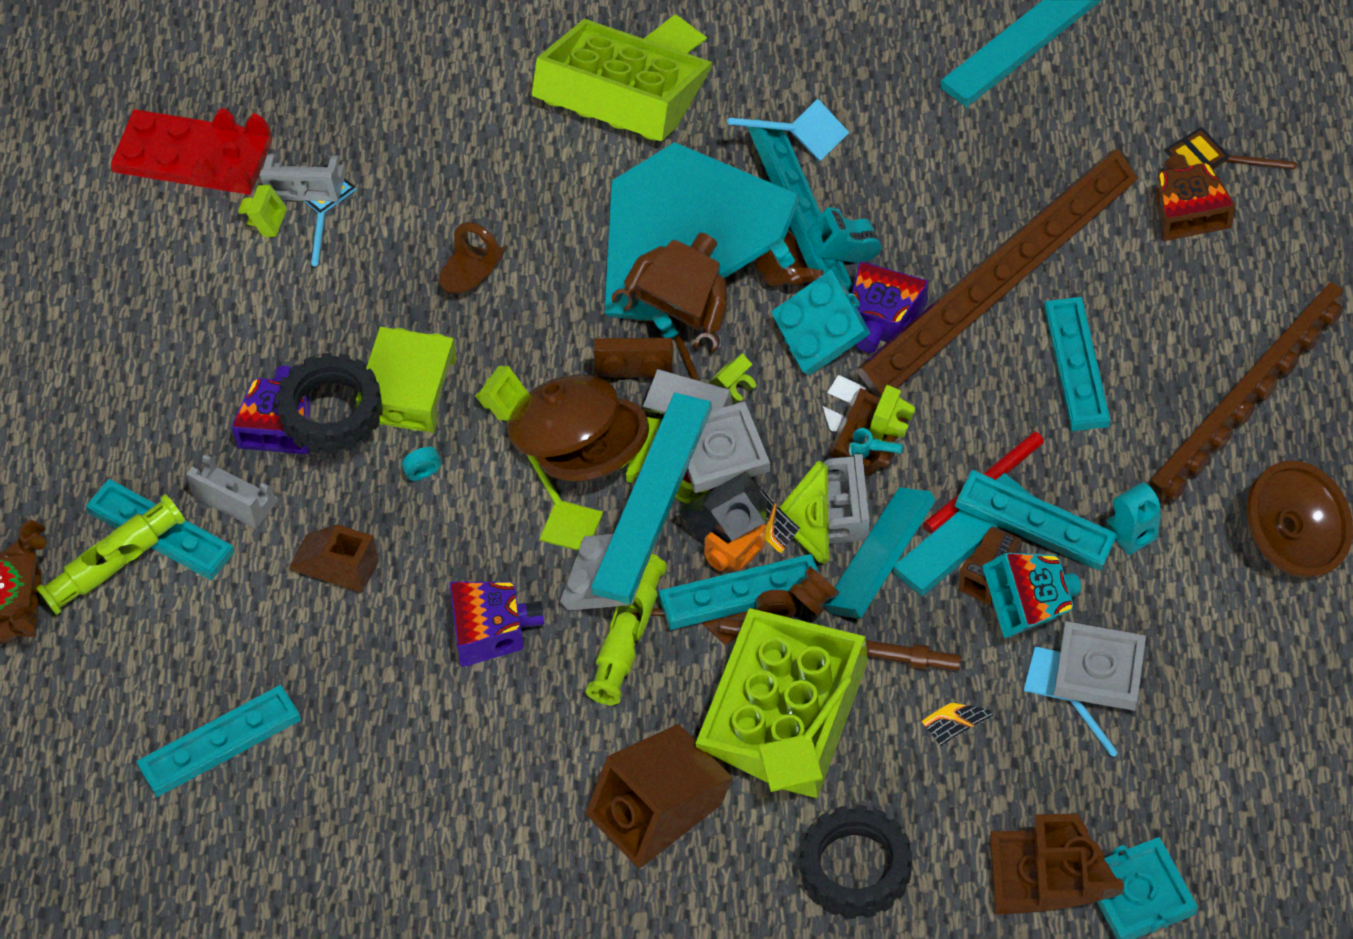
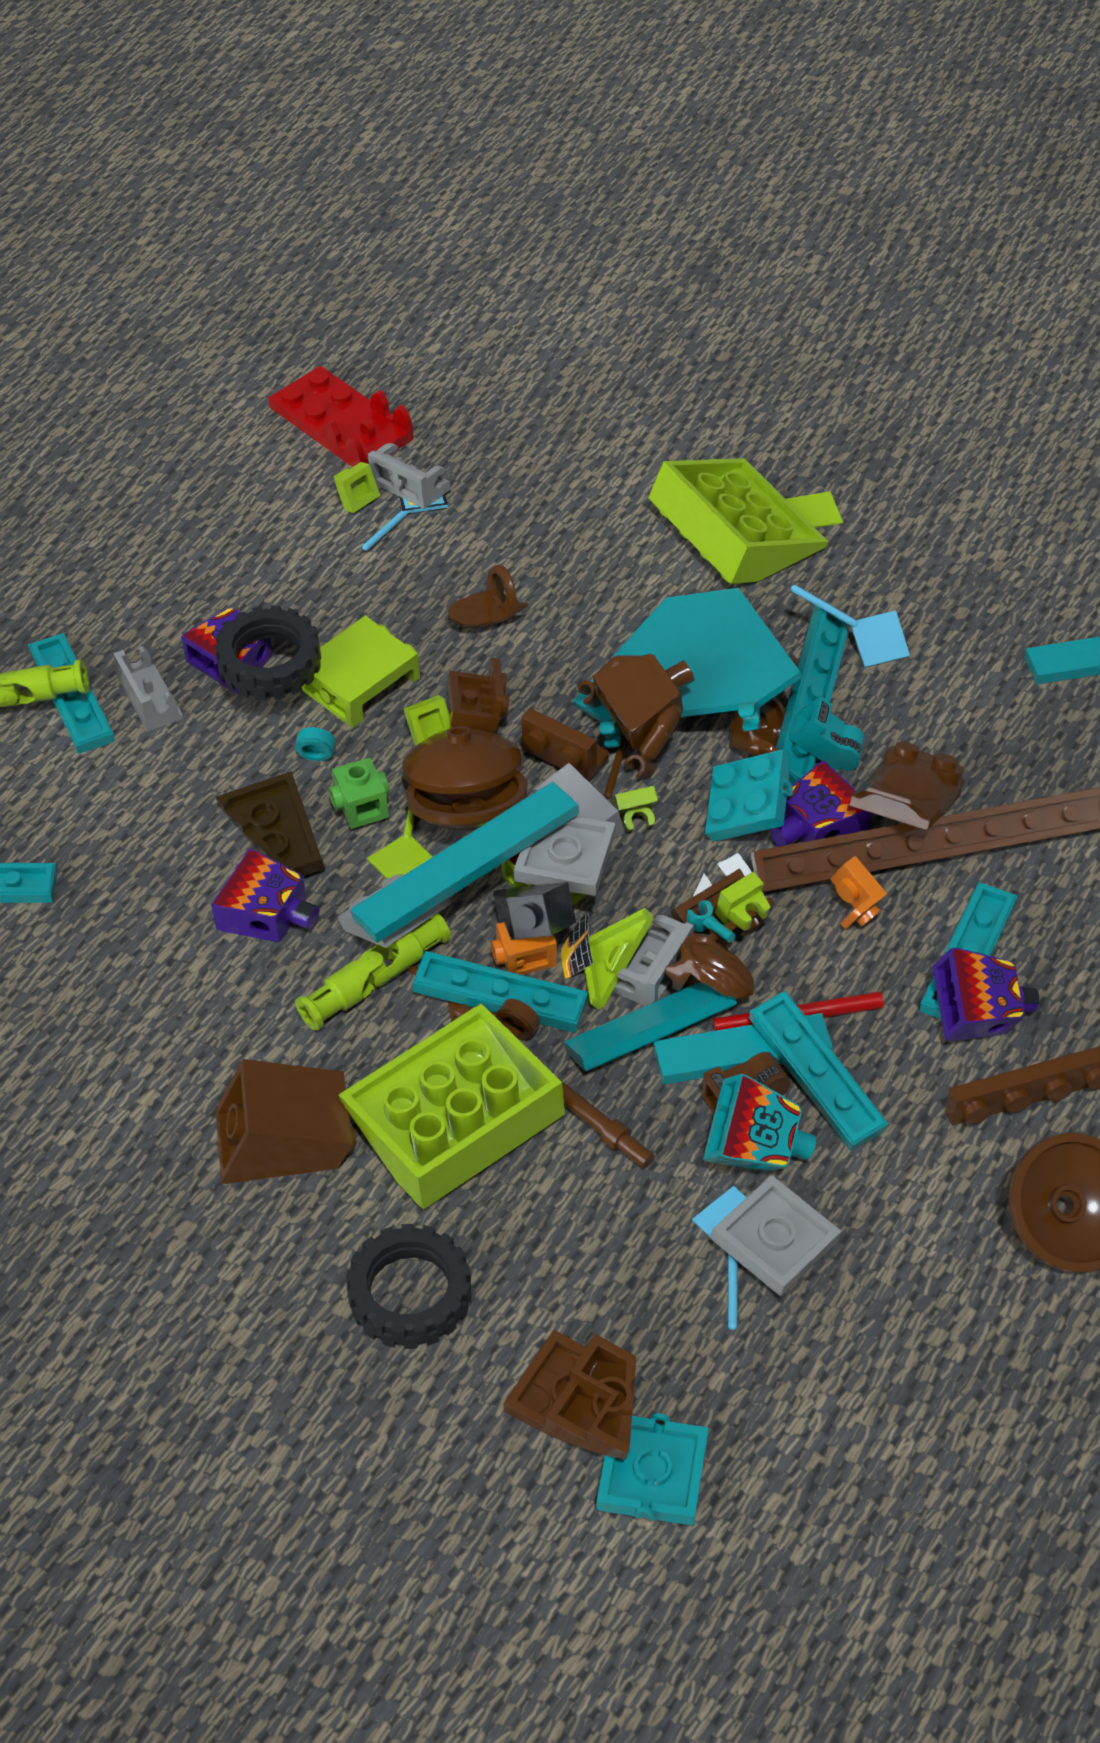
camera: 30 degrees right, 5 degrees down
(337, 556) = (184, 785): reddish brown slope -> none
(442, 549) = (275, 822): none -> dark brown wing
(498, 485) = (360, 792): none -> bright green brick
(532, 350) = (478, 699): none -> reddish brown bracket
(794, 759) = (409, 1156): lime piece -> none
(814, 591) = (558, 1022): reddish brown wheel -> none
(901, 479) = (712, 966): none -> reddish brown piece
(944, 248) = (911, 786): none -> reddish brown slope
(954, 720) = (605, 1210): sticker -> none
(963, 356) = (859, 889): none -> orange bracket
(1116, 394) = (980, 995): none -> torso
(1135, 512) = (910, 1113): teal leg -> none

